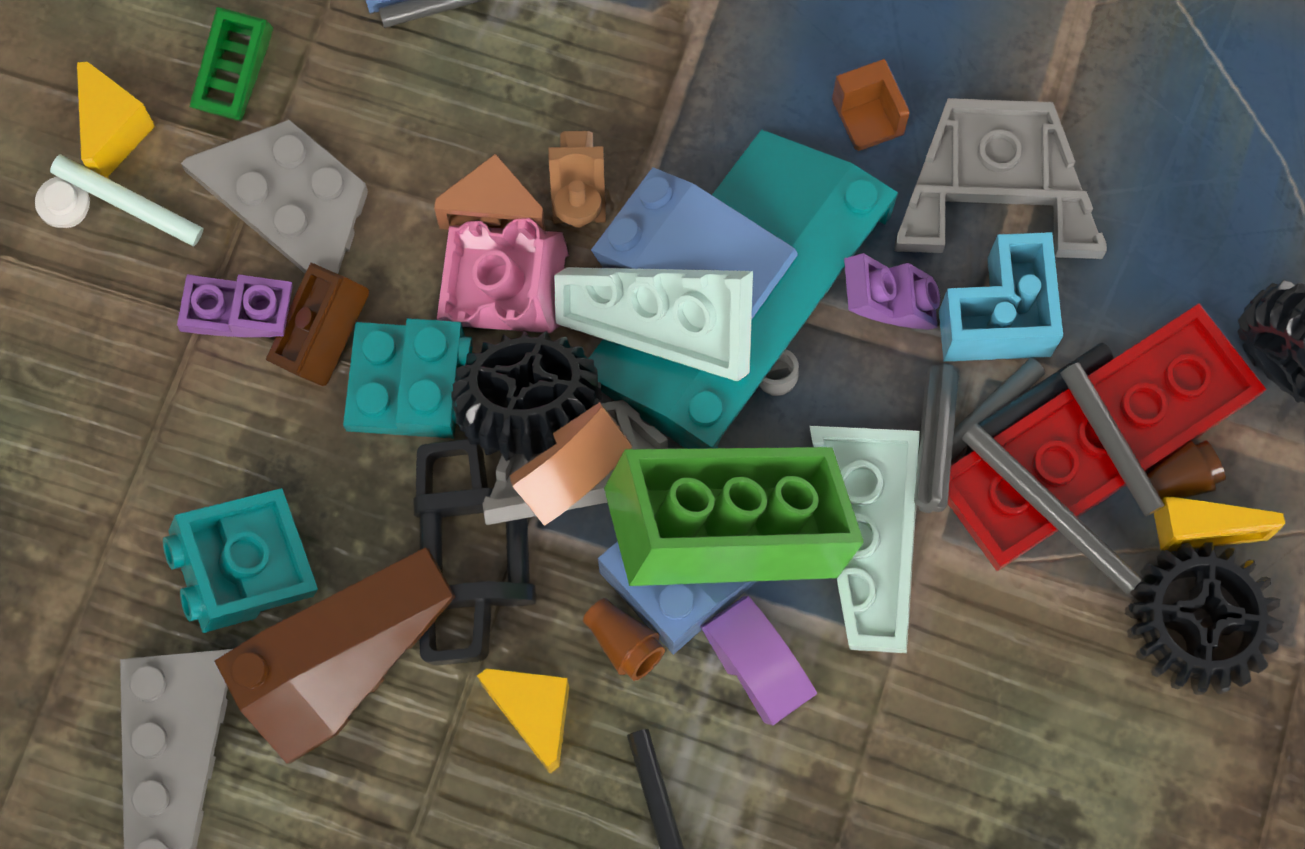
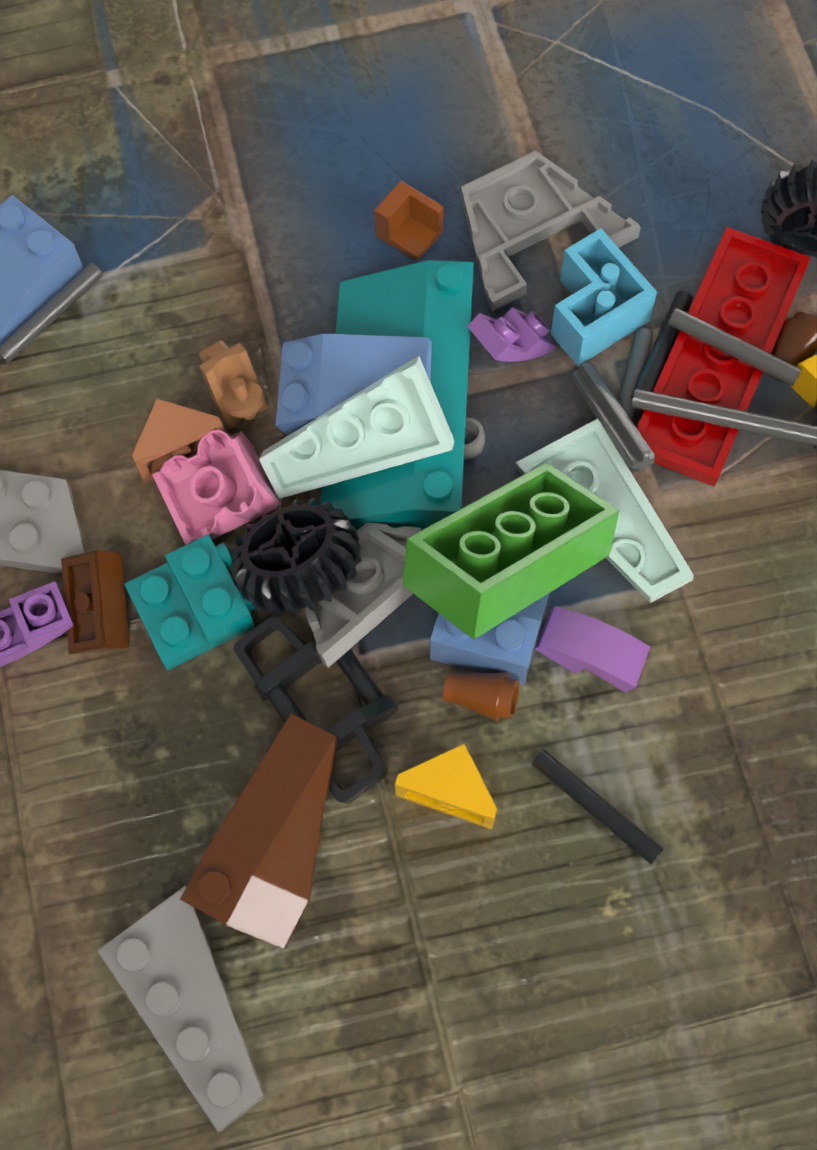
camera: 30 degrees left, 5 degrees down
(238, 560) = (145, 814): teal plate -> none
(572, 467) = (371, 579): nougat slope -> none

